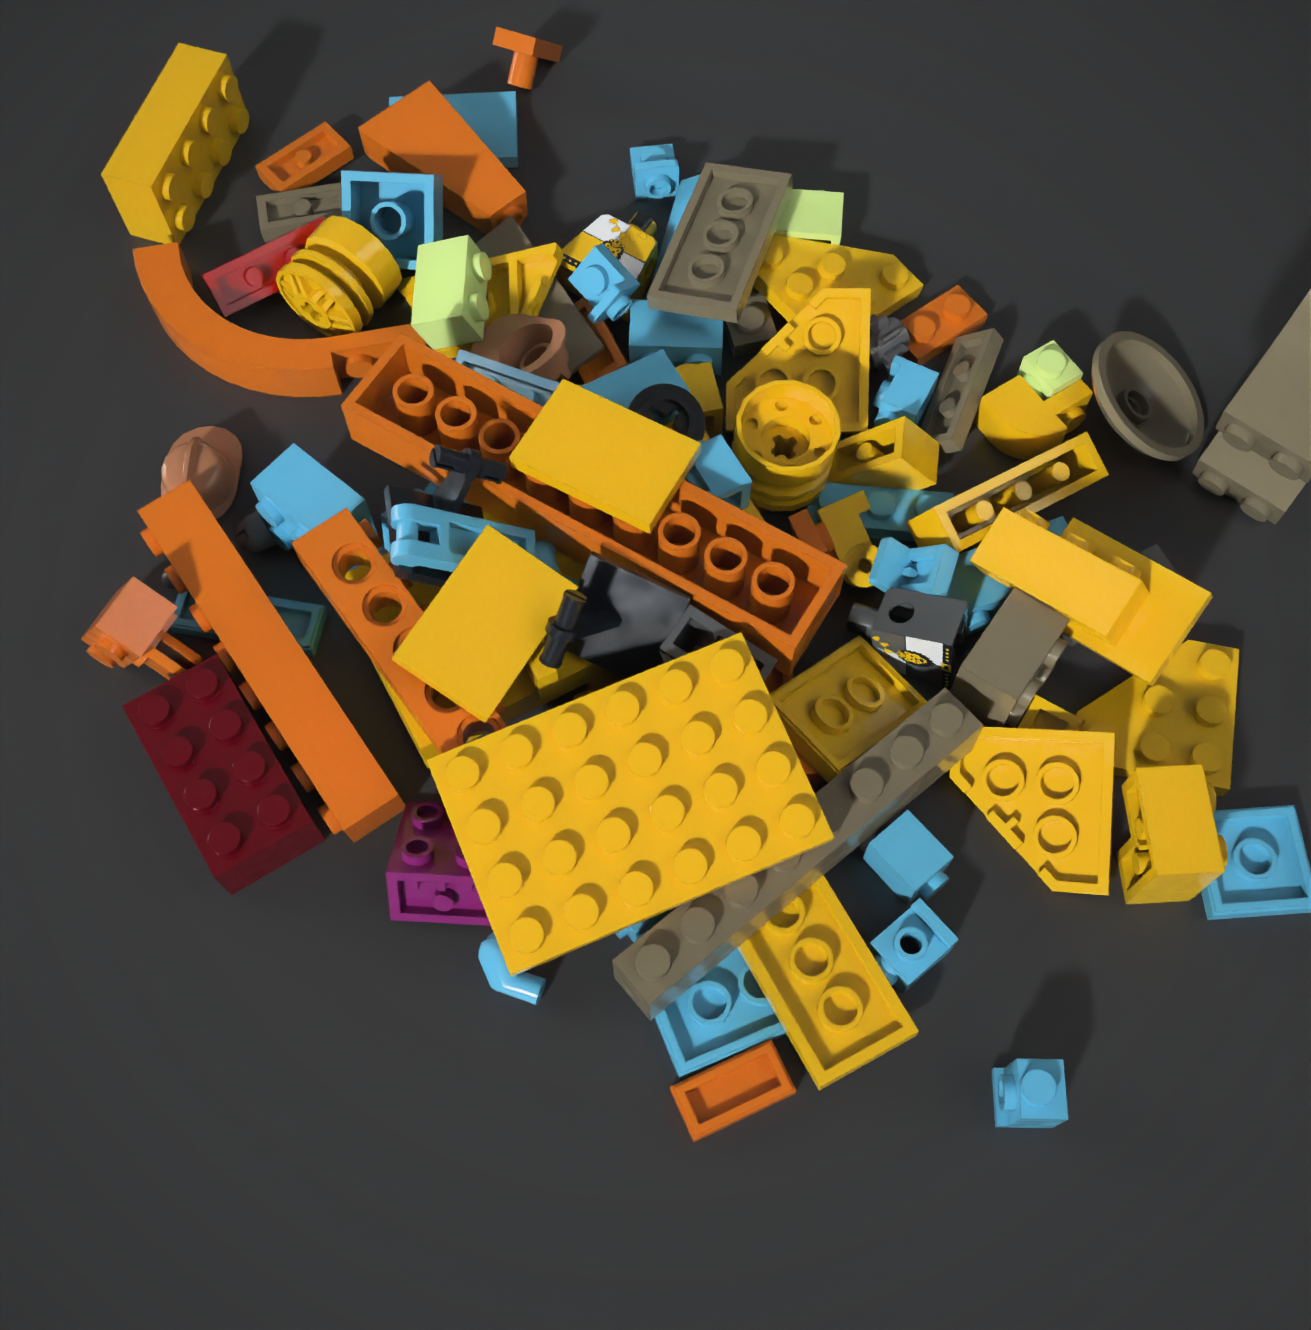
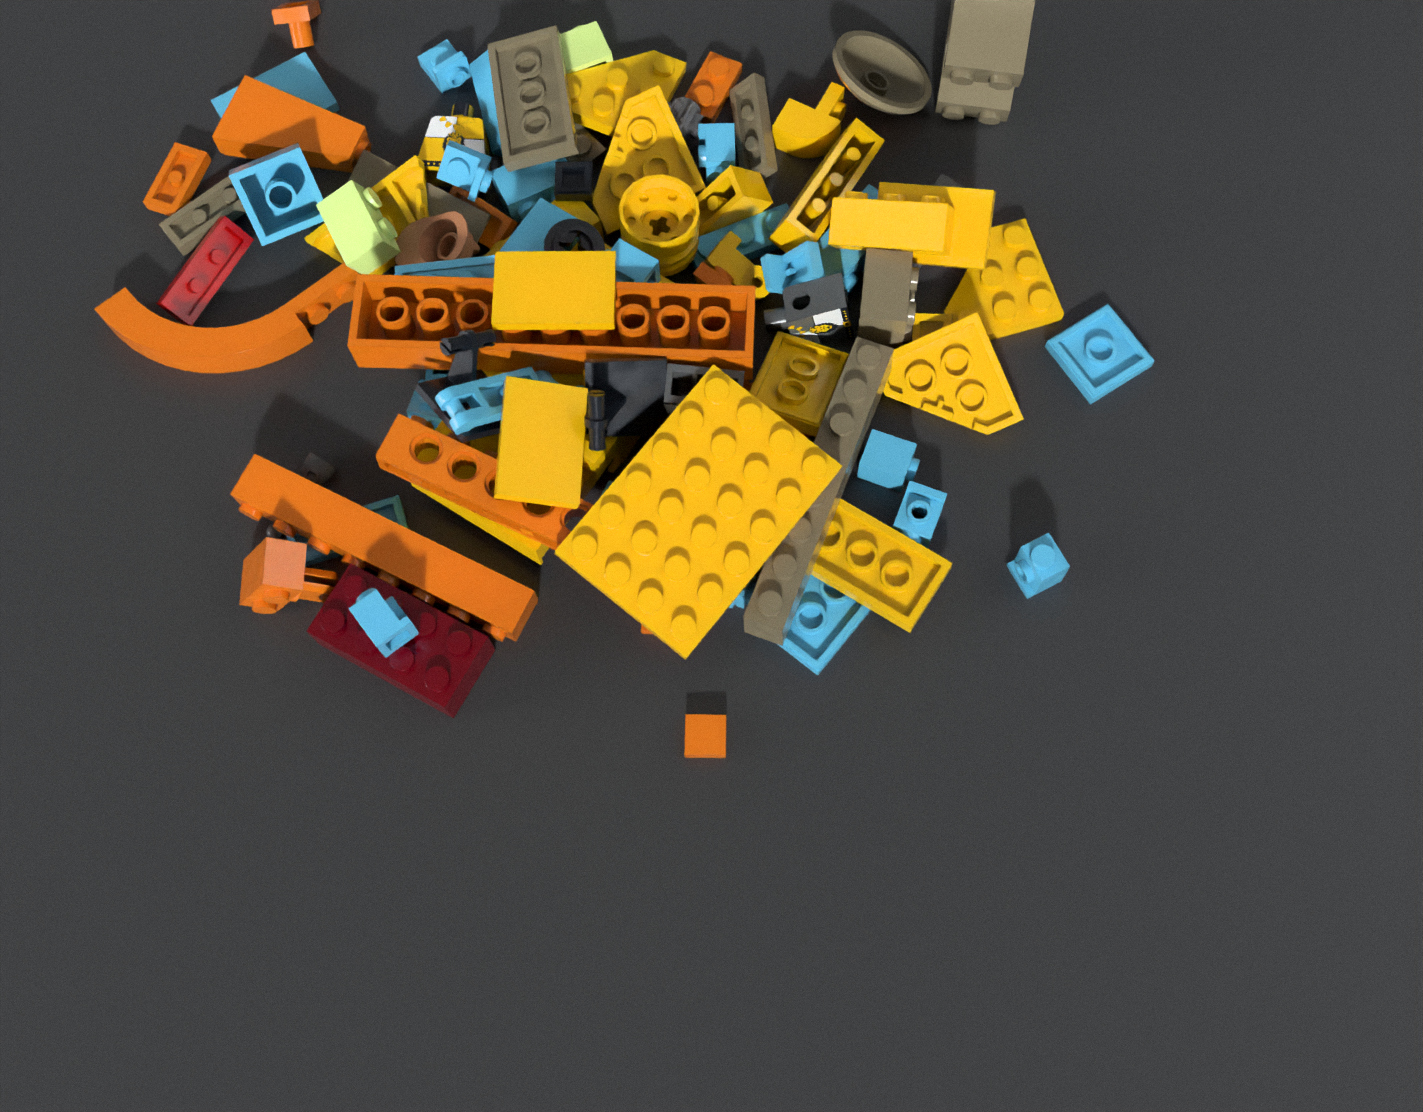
camera: 25 degrees left, 5 degrees up
(177, 145) = (76, 213): yellow brick -> none
(198, 739) = (383, 621): none -> medium azure brick
(212, 463) = (239, 437): nougat piece -> none
(301, 494) = (350, 431): medium azure brick -> none
(339, 277) = (266, 256): yellow wheel -> none
(429, 872) = (588, 624): magenta bracket -> none
(500, 1080) = (705, 736): none -> orange tile
(521, 986) = (667, 668): medium azure arm -> none
(716, 352) = (574, 181): none -> black tile
(732, 1090) = (855, 663): orange tile -> none
(1049, 370) = (807, 85): yellowish green brick -> none
(1172, 835) = (1045, 360): yellow brick -> none

